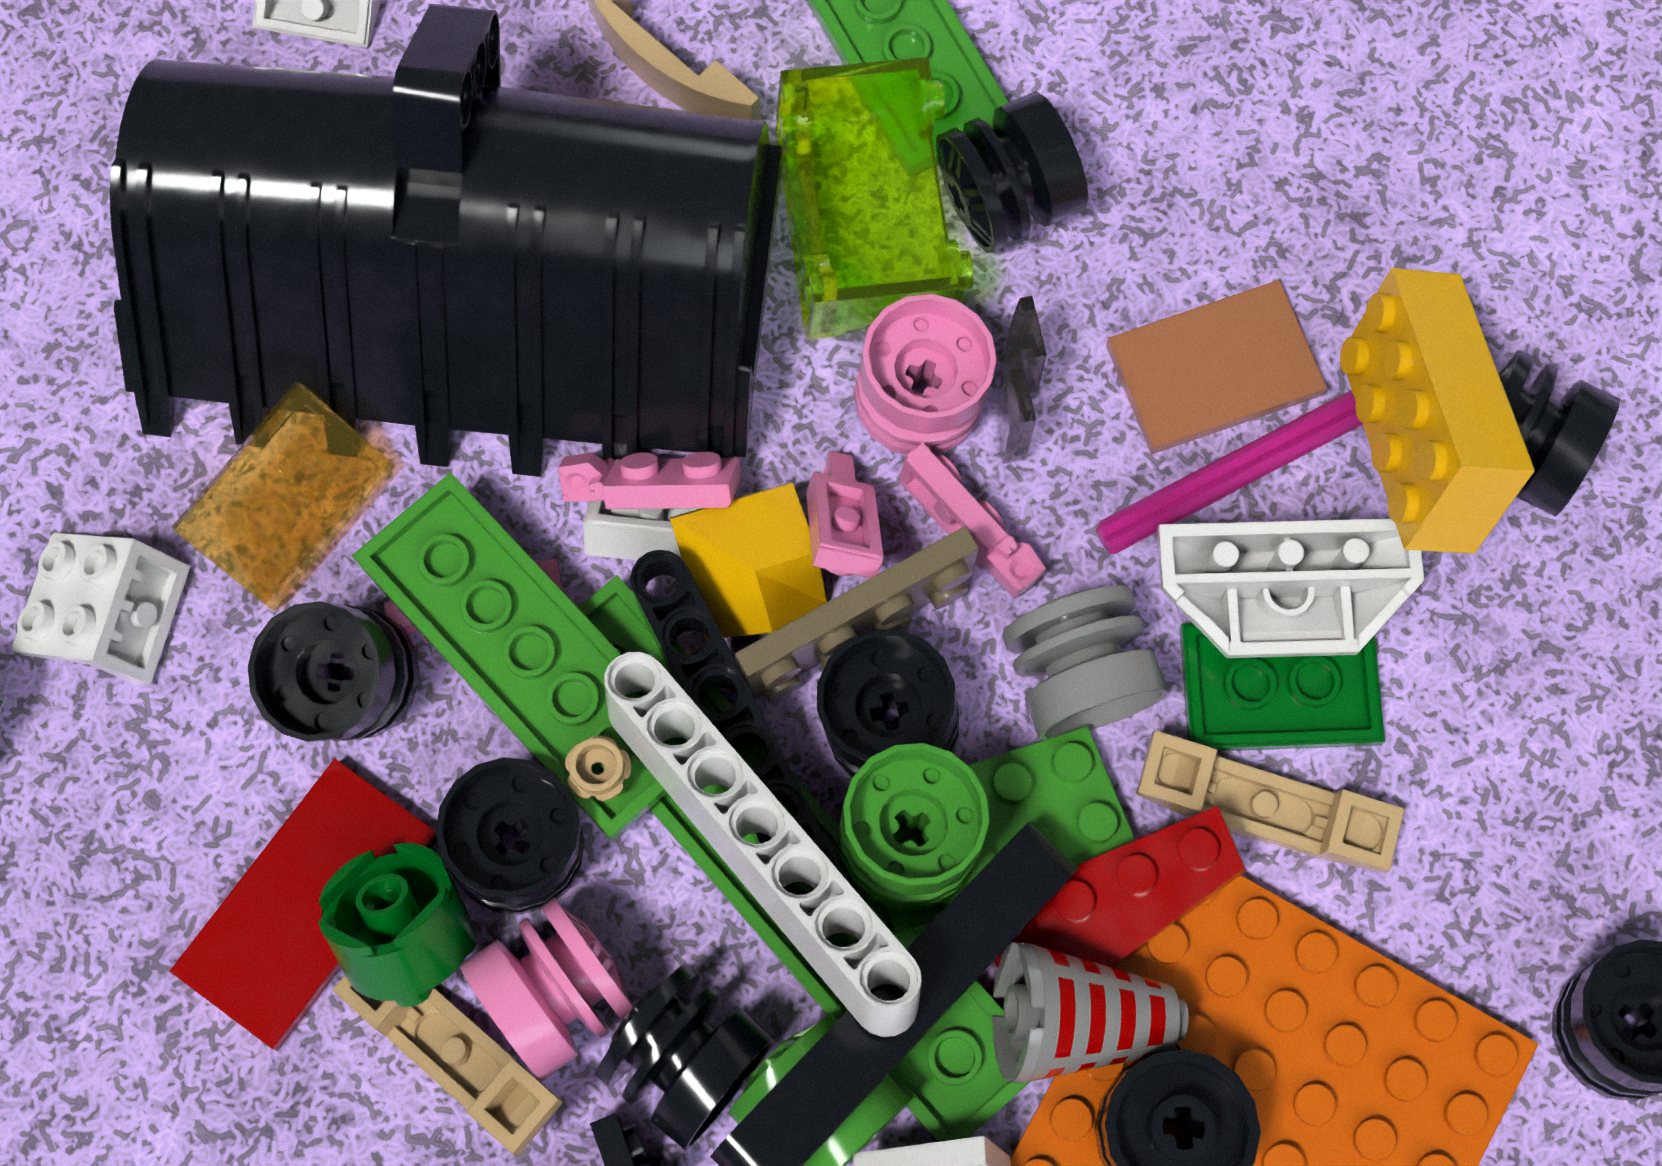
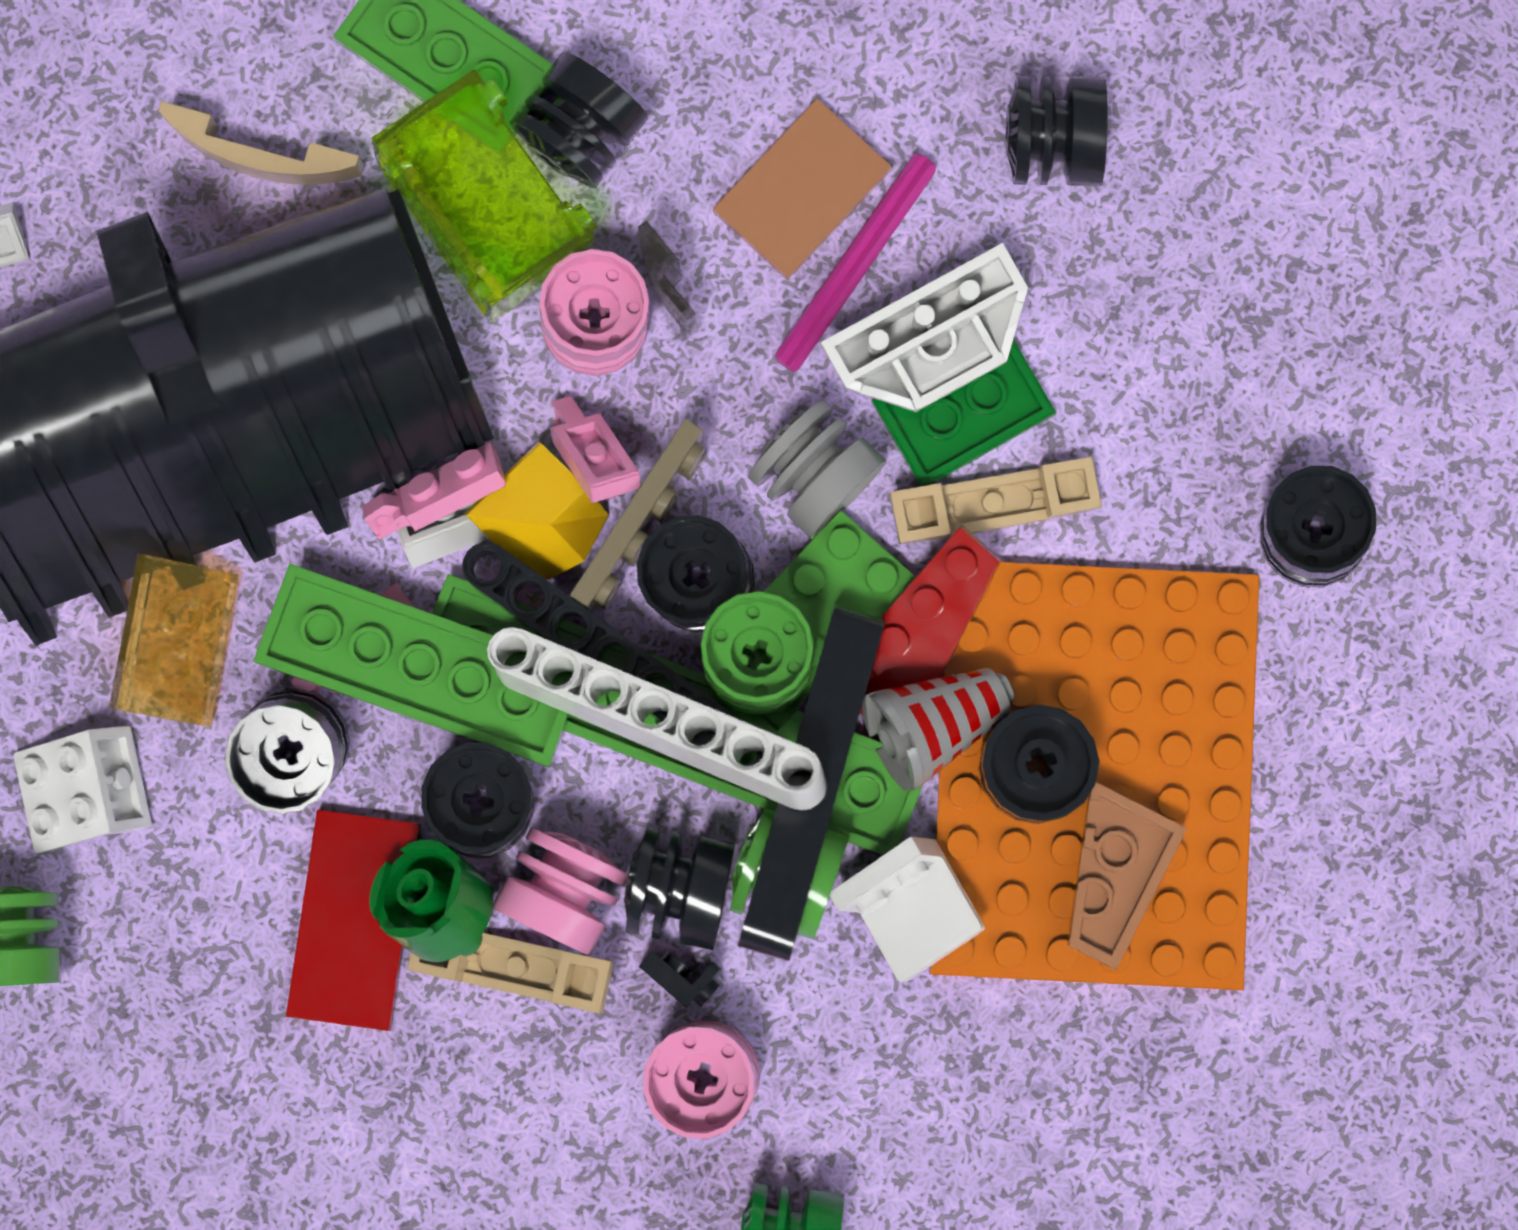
camera: 25 degrees left, 10 degrees up
(592, 751) = (514, 709): tan plate -> none
(938, 489) = (644, 388): bright pink hinge -> none
(1434, 412) = (975, 159): yellow brick -> none

